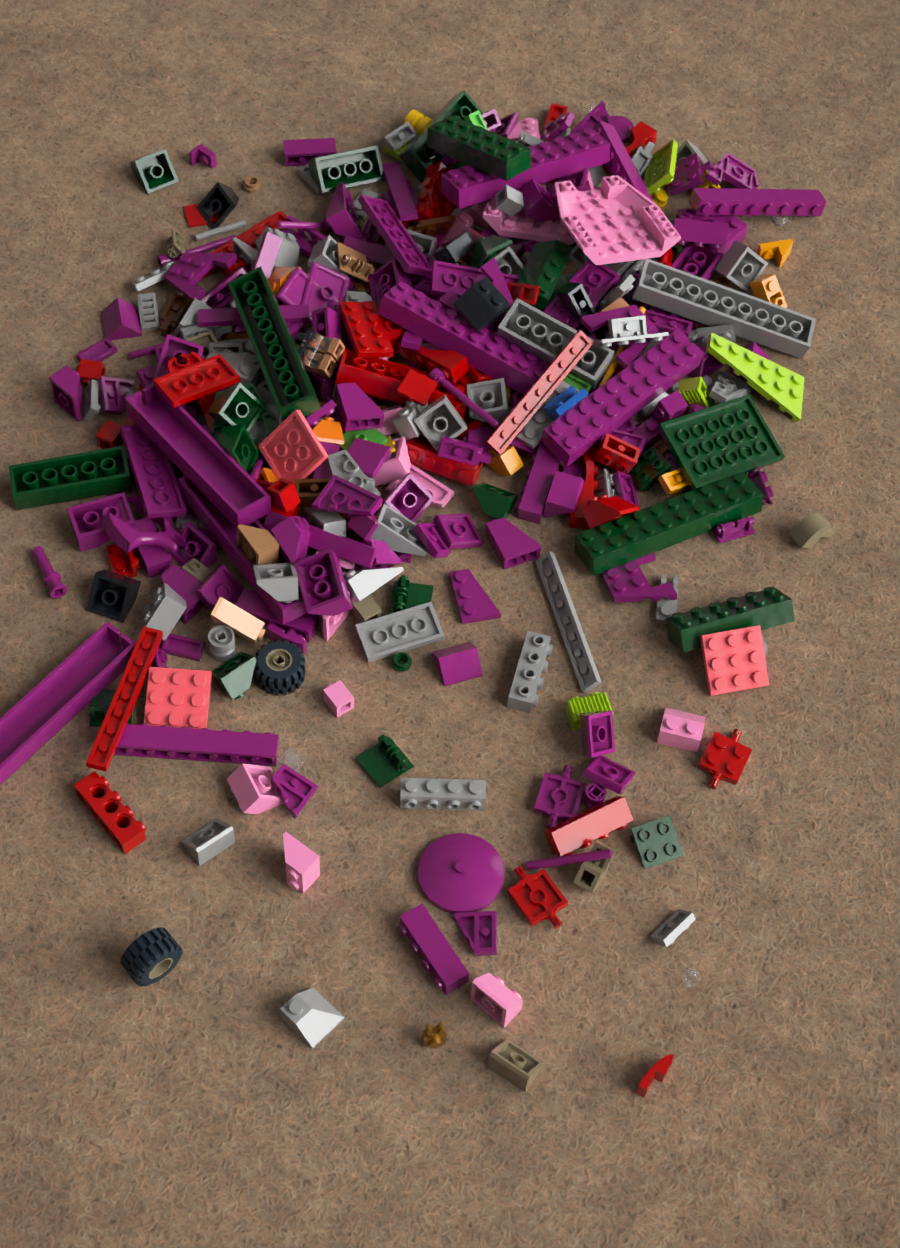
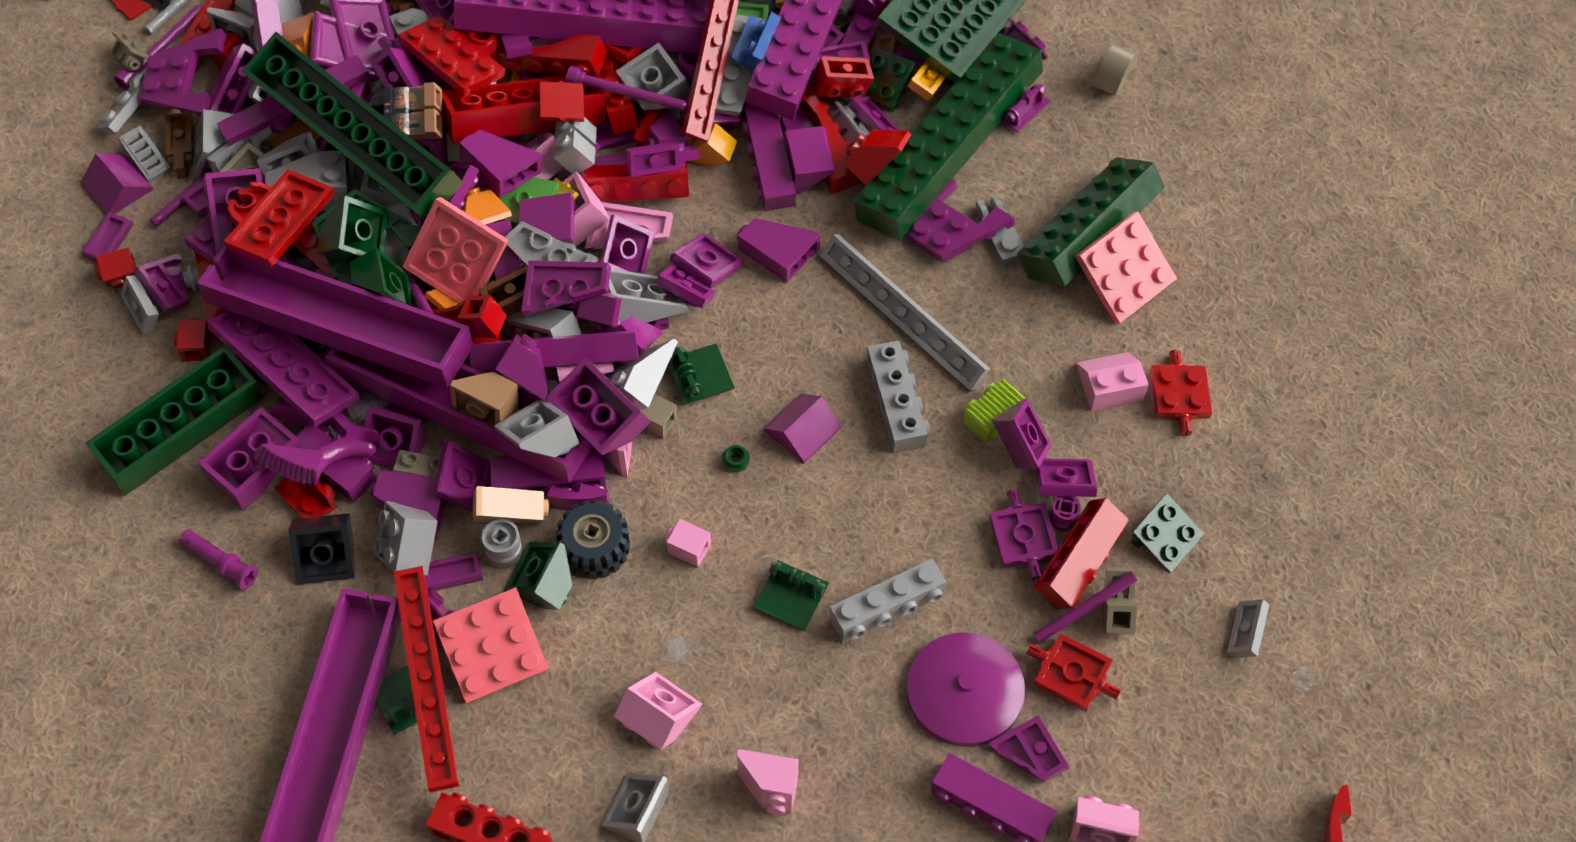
camera: 25 degrees left, 5 degrees up
(67, 391) = (102, 307): magenta slope -> none
(199, 745) = (552, 688): magenta brick -> none
(293, 789) = (703, 687): magenta wing -> none
(399, 632) = (712, 422): light grey plate -> none
(440, 419) = (611, 131): light grey slope -> none
(471, 599) = (771, 338): magenta wing -> none
(494, 500) = (728, 201): dark green slope -> none

